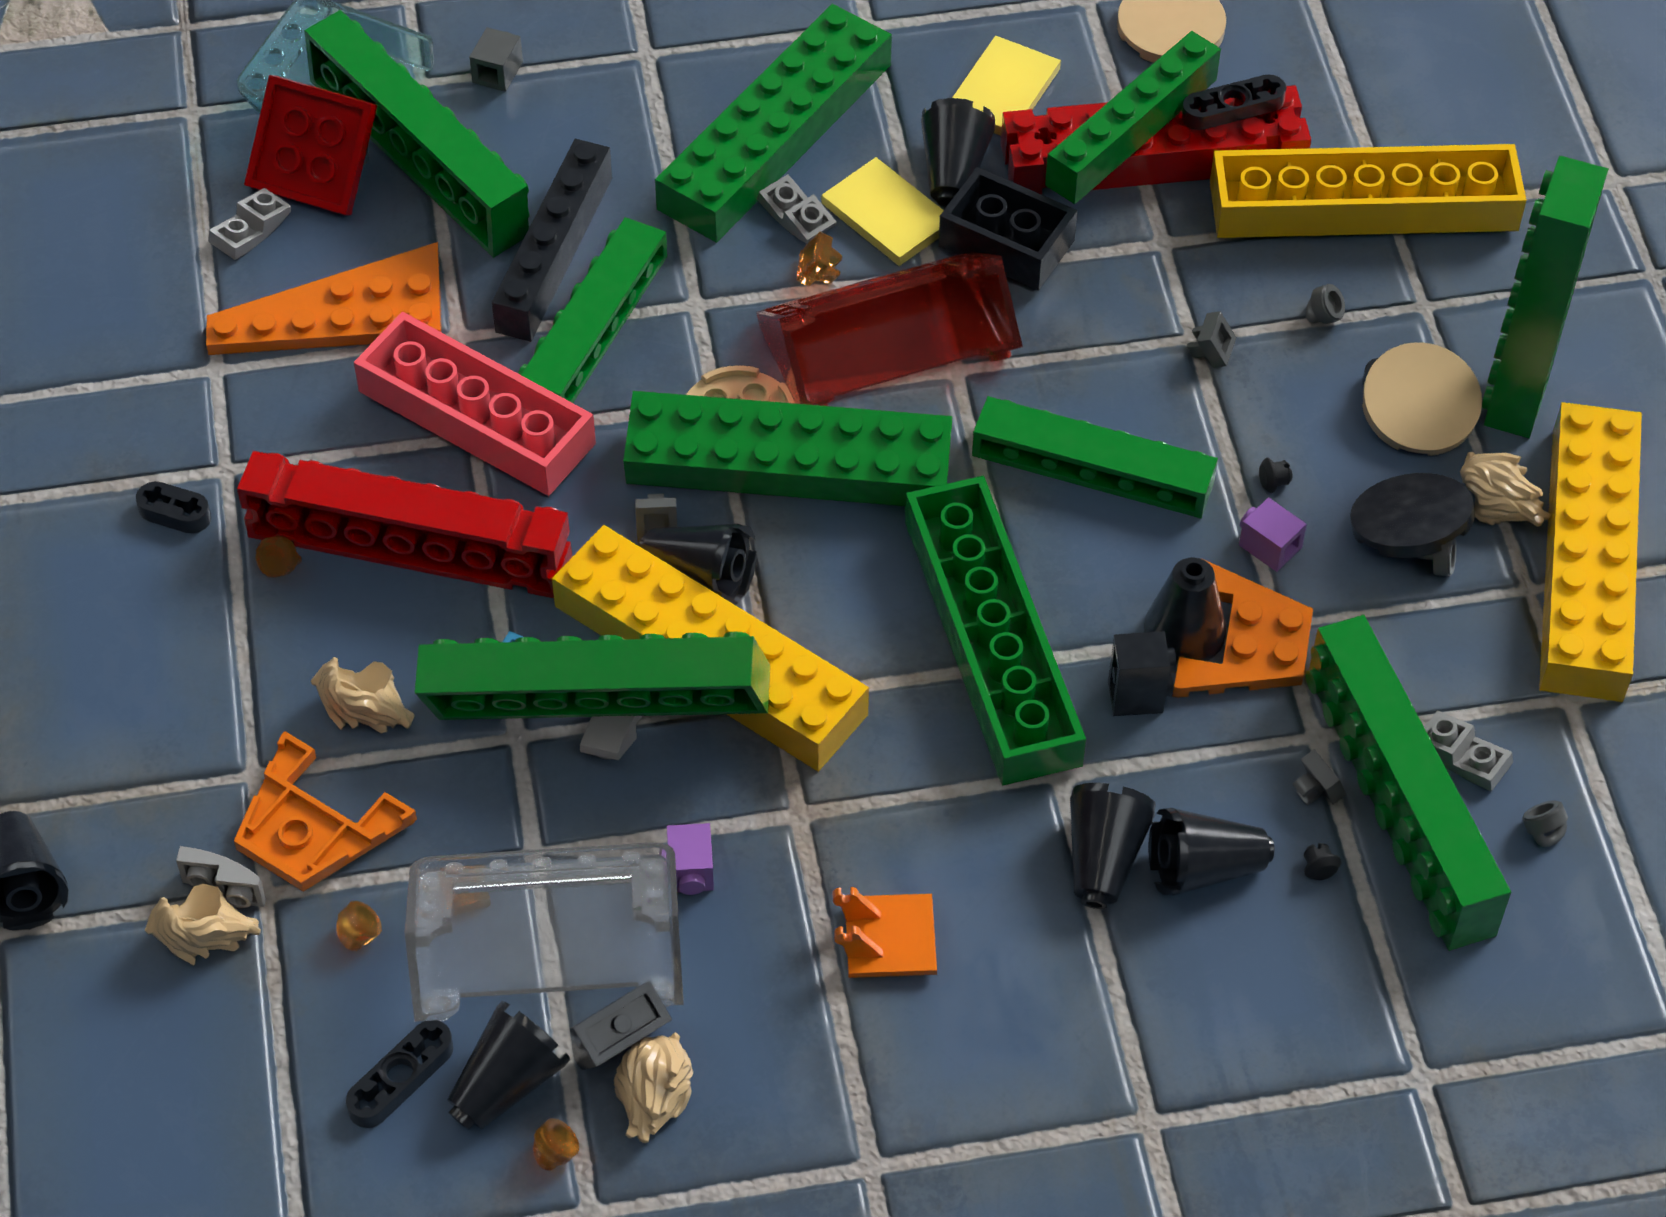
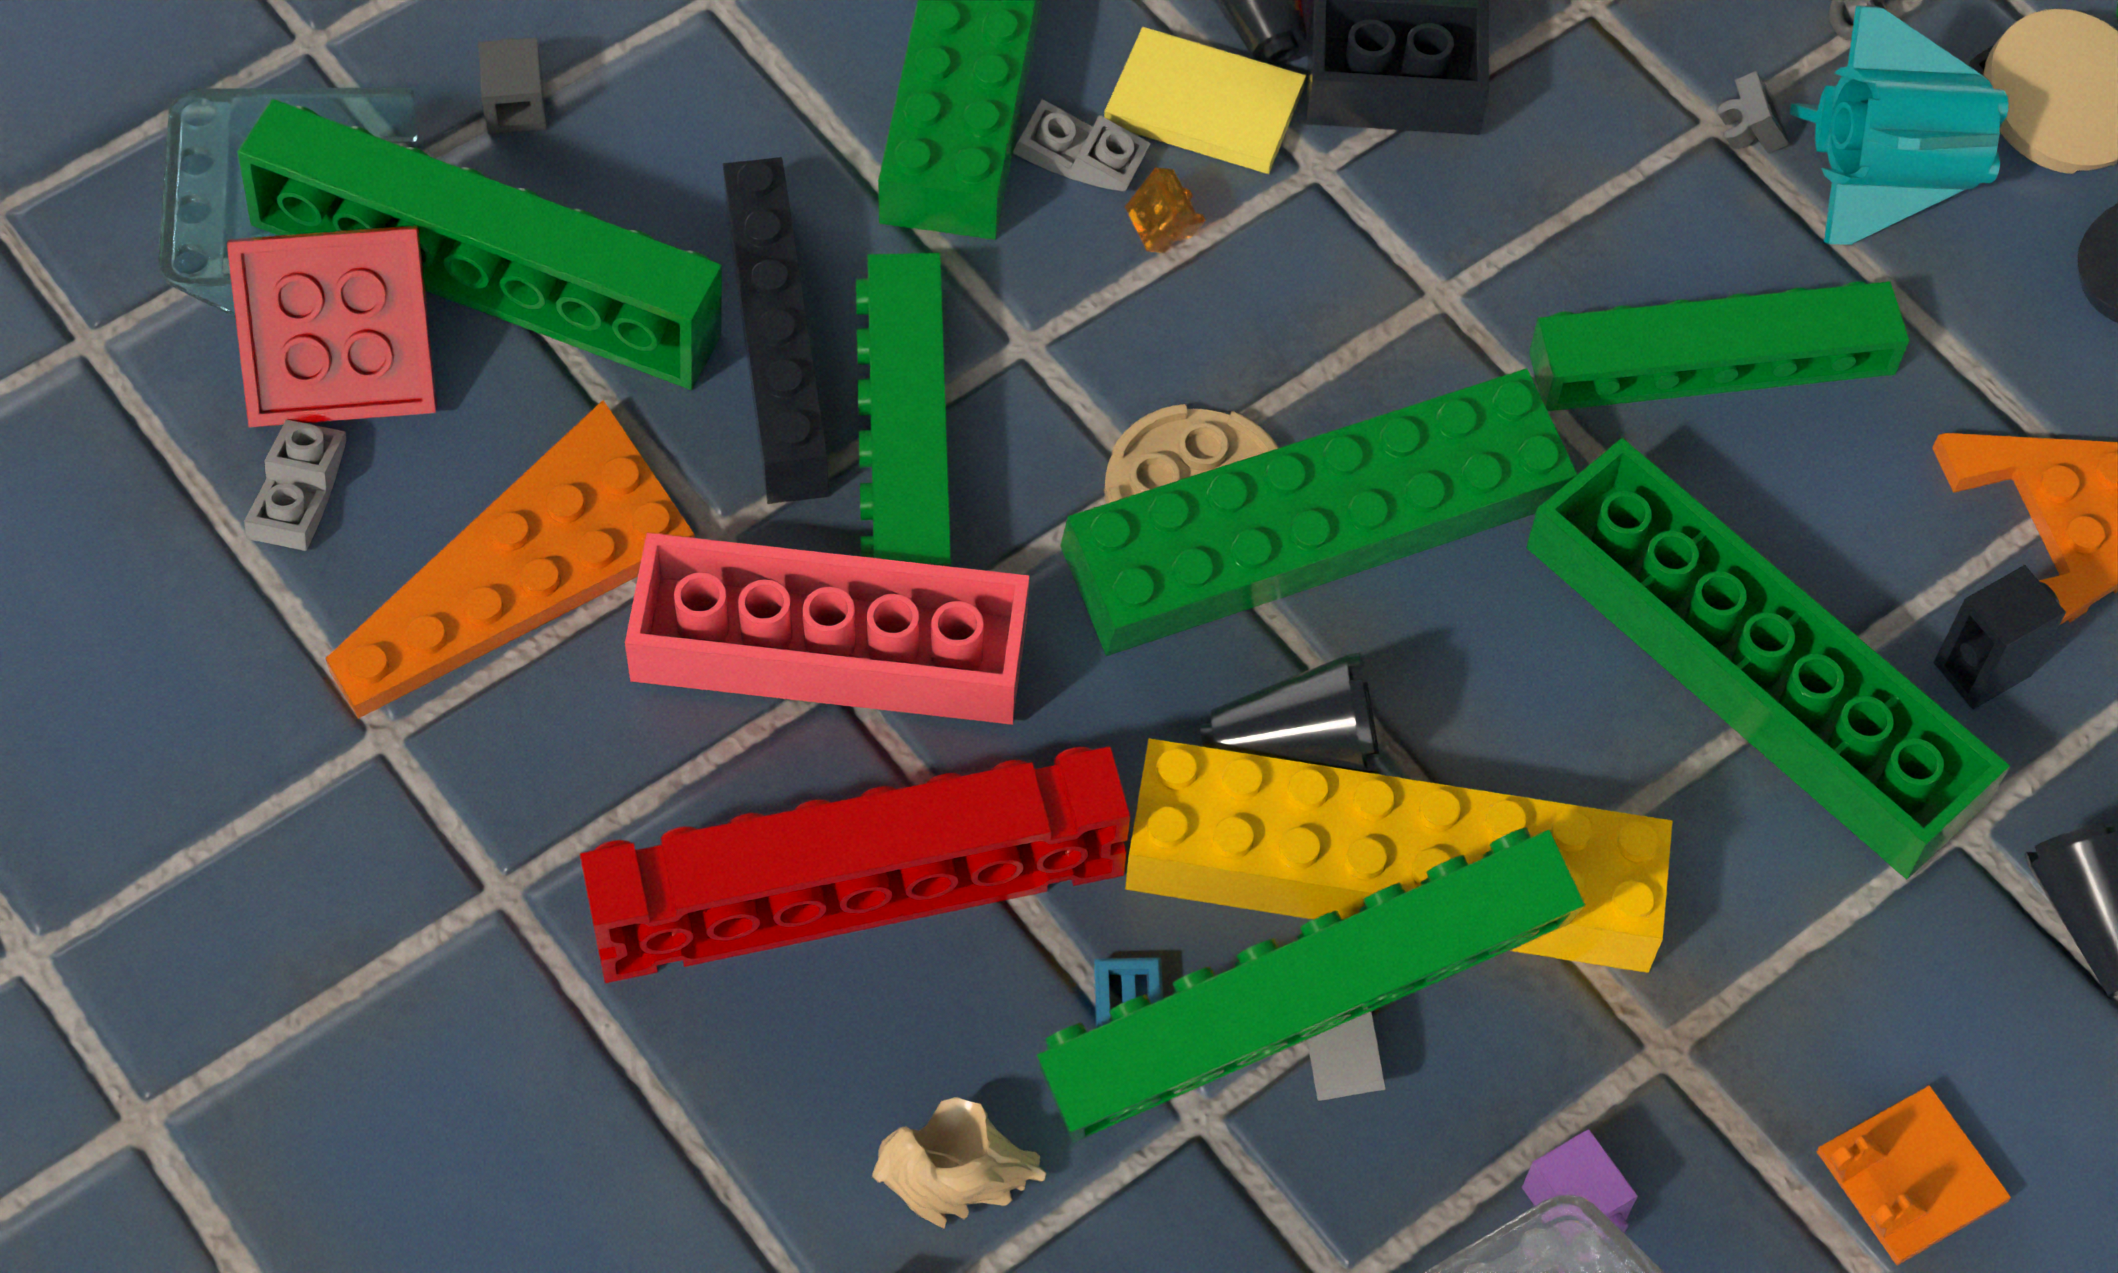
camera: 30 degrees left, 5 degrees up
(173, 508) = (465, 987): black beam -> none
(277, 556) = (681, 998): clear orange tile -> none
(655, 513) = (1194, 690): dark grey tile -> none
(892, 326) = (1330, 263): clear red windscreen -> none
(1189, 611) = (1991, 519): black cone -> none
(1271, 534) = (2011, 359): medium lavender brick -> none
(1274, 474) = (1952, 273): black piece -> none
(1284, 374) = (1901, 127): none -> teal brick

